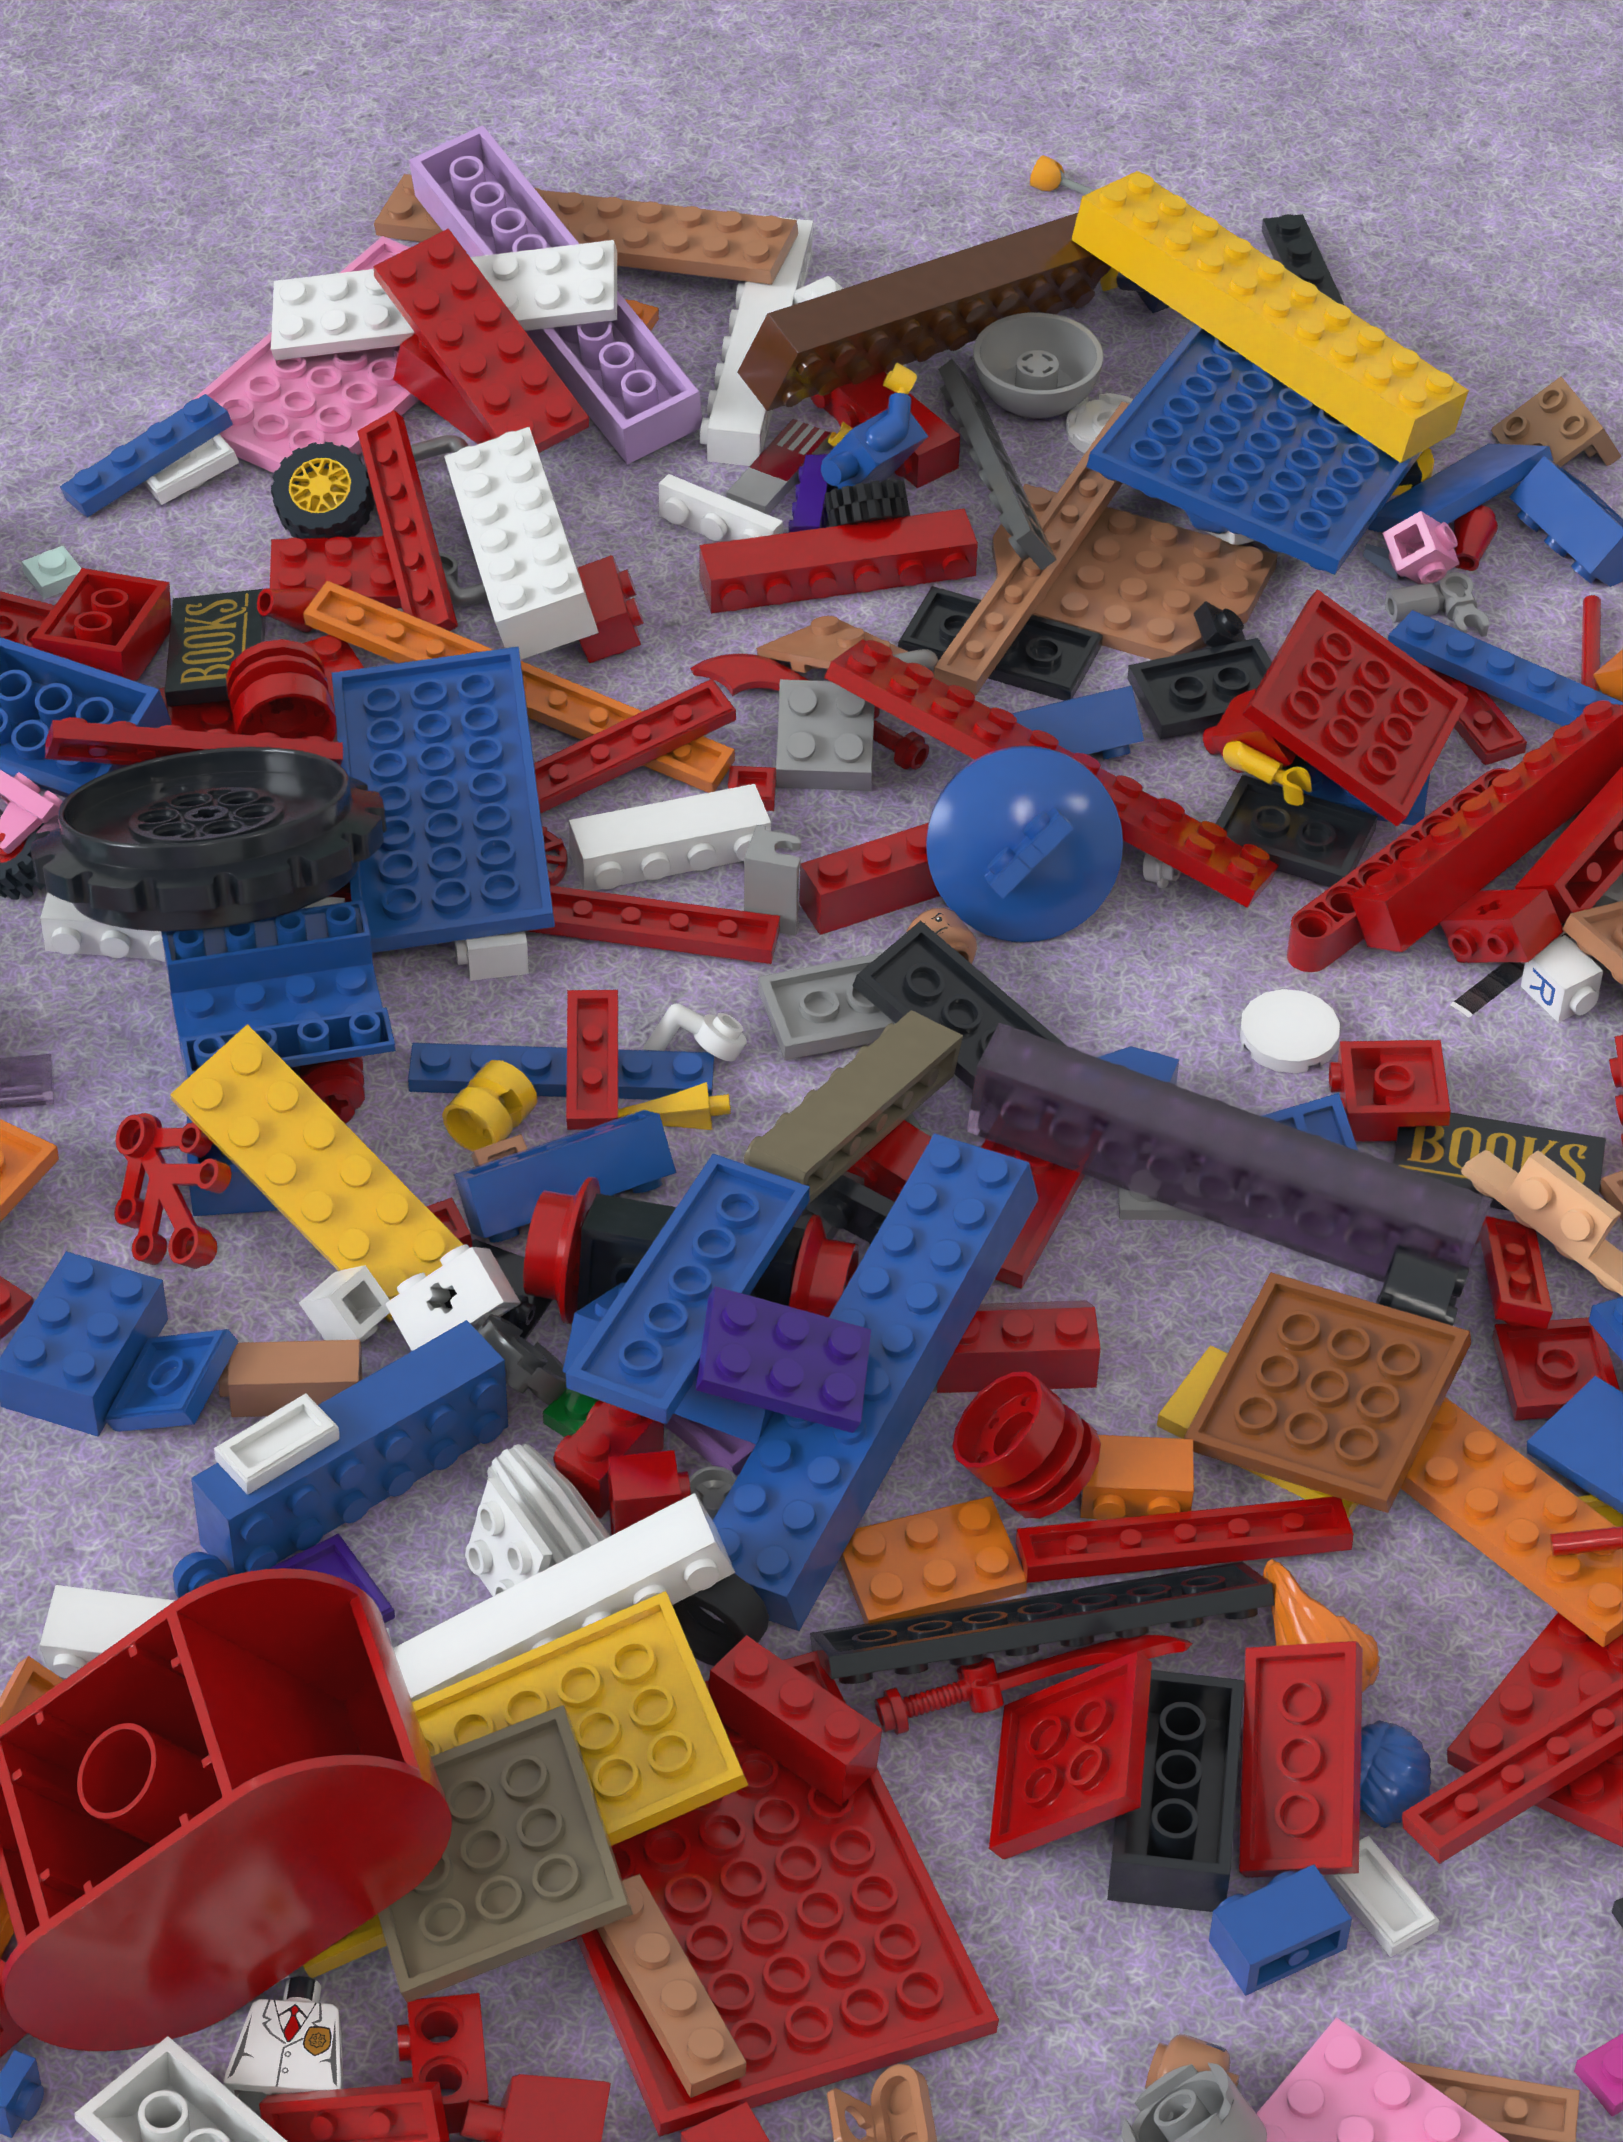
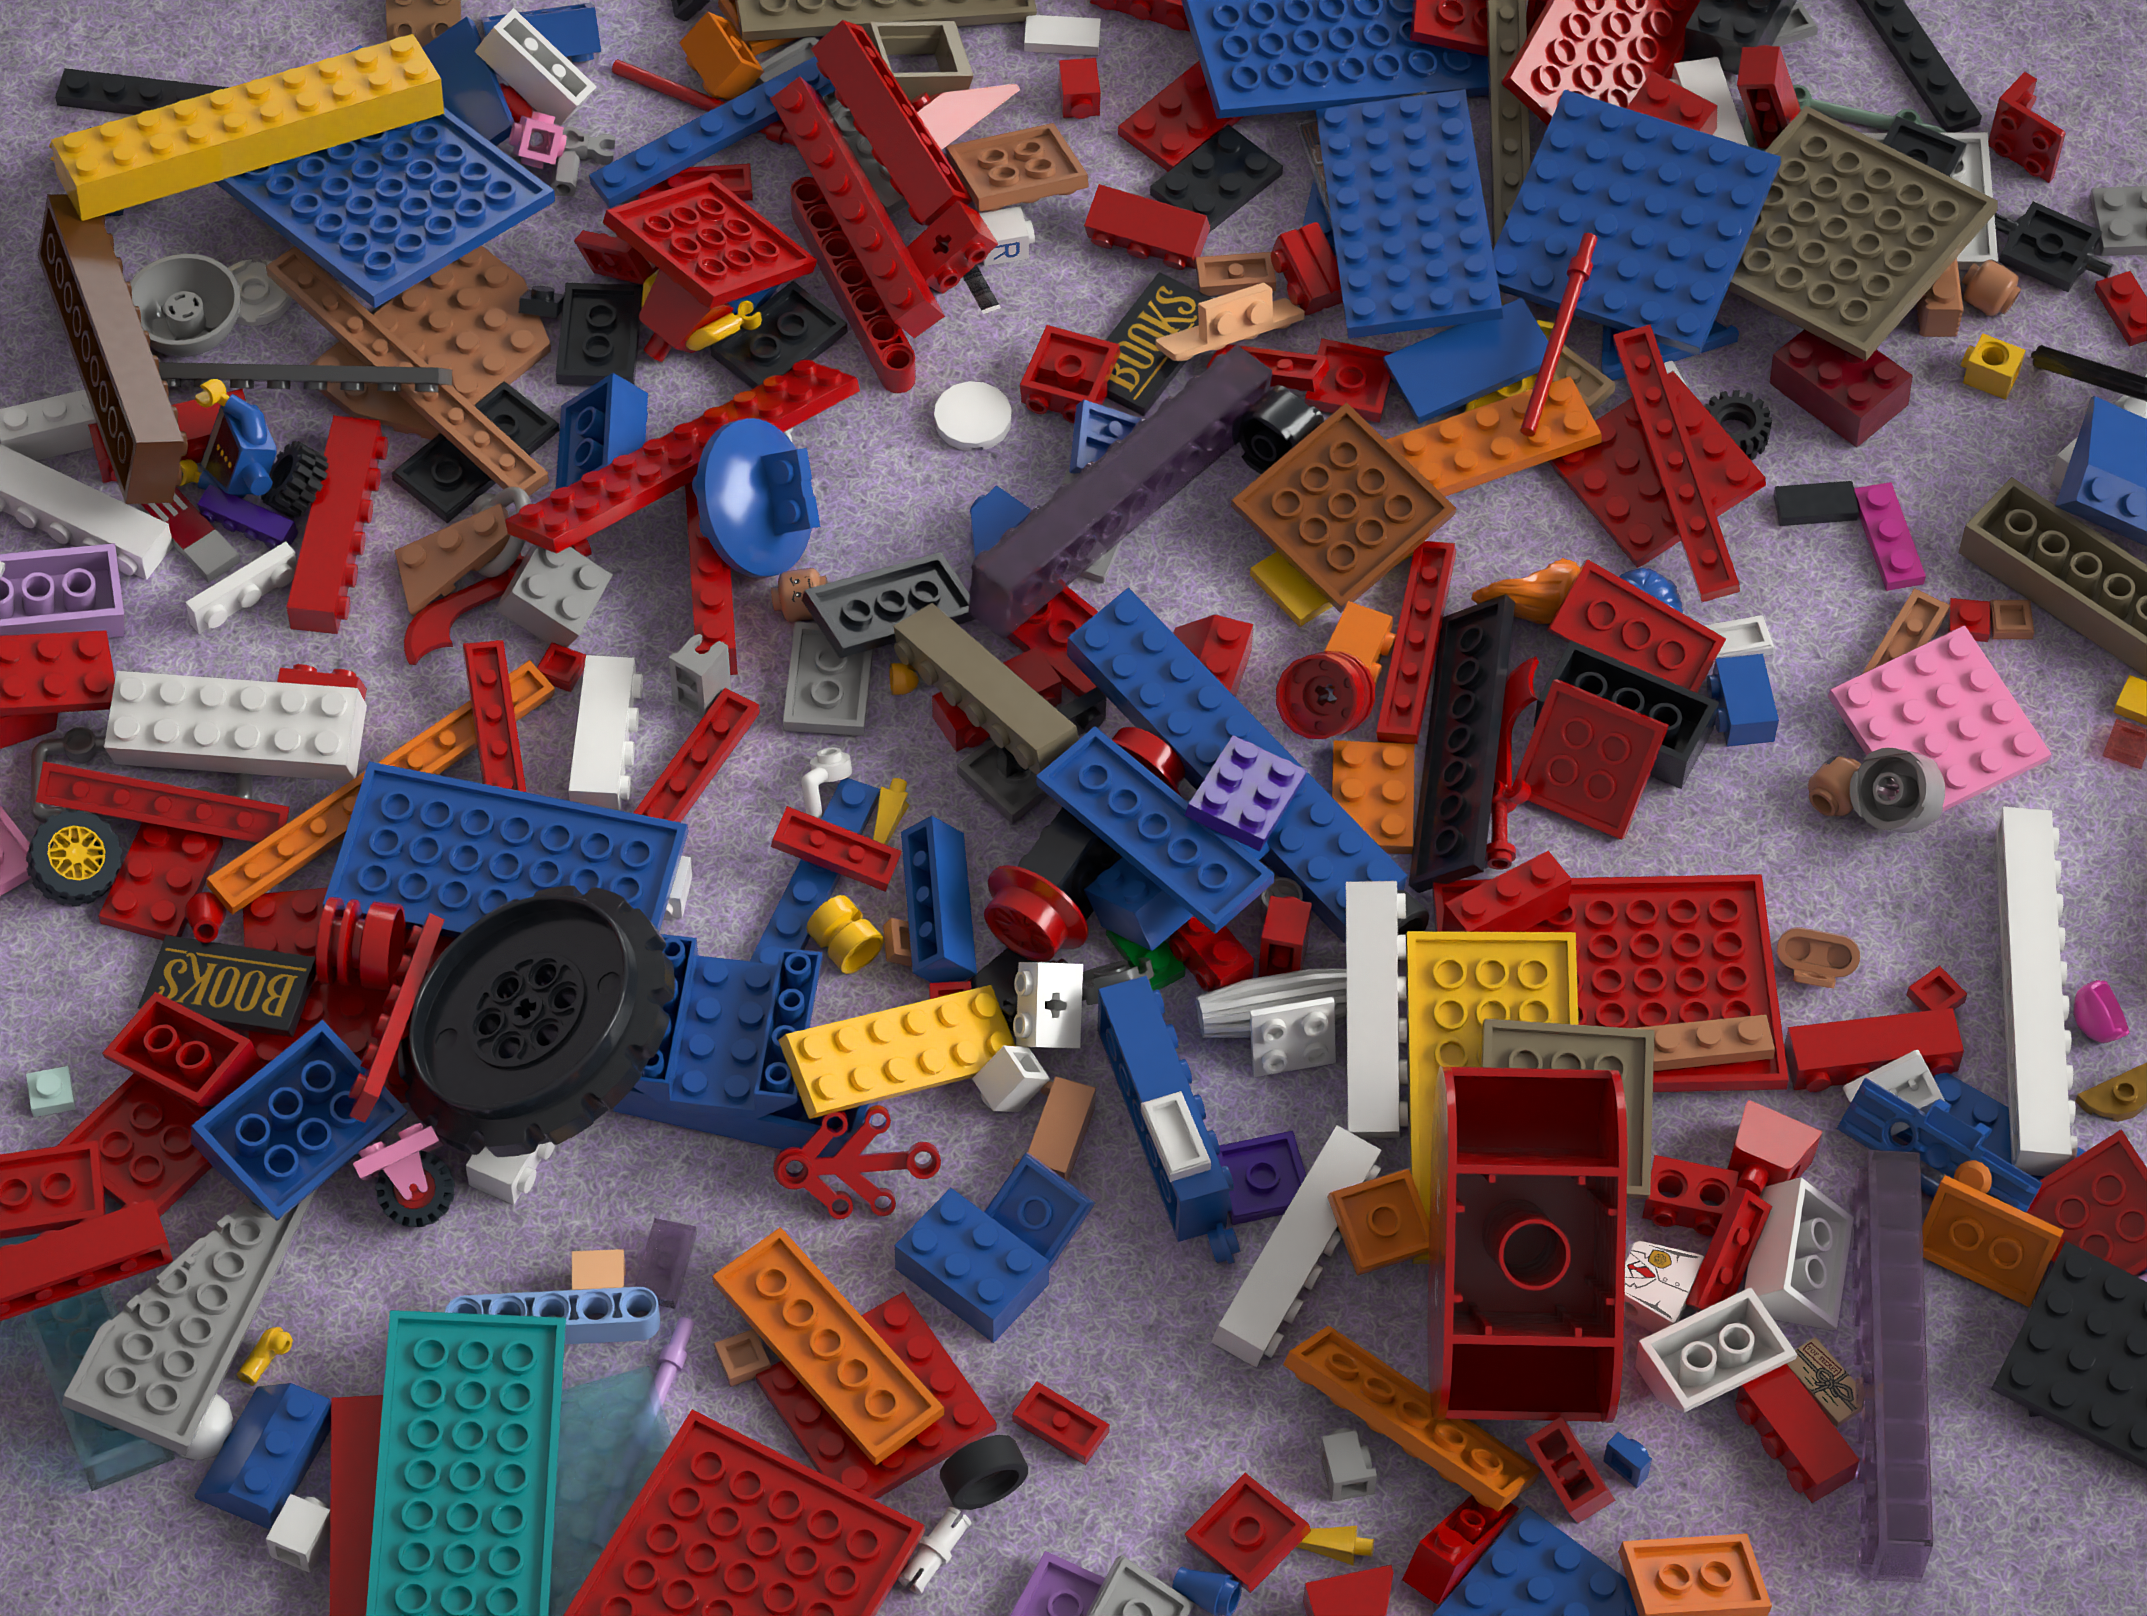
camera: 70 degrees left, 10 degrees up
(1514, 517) = (535, 68): none -> white brick

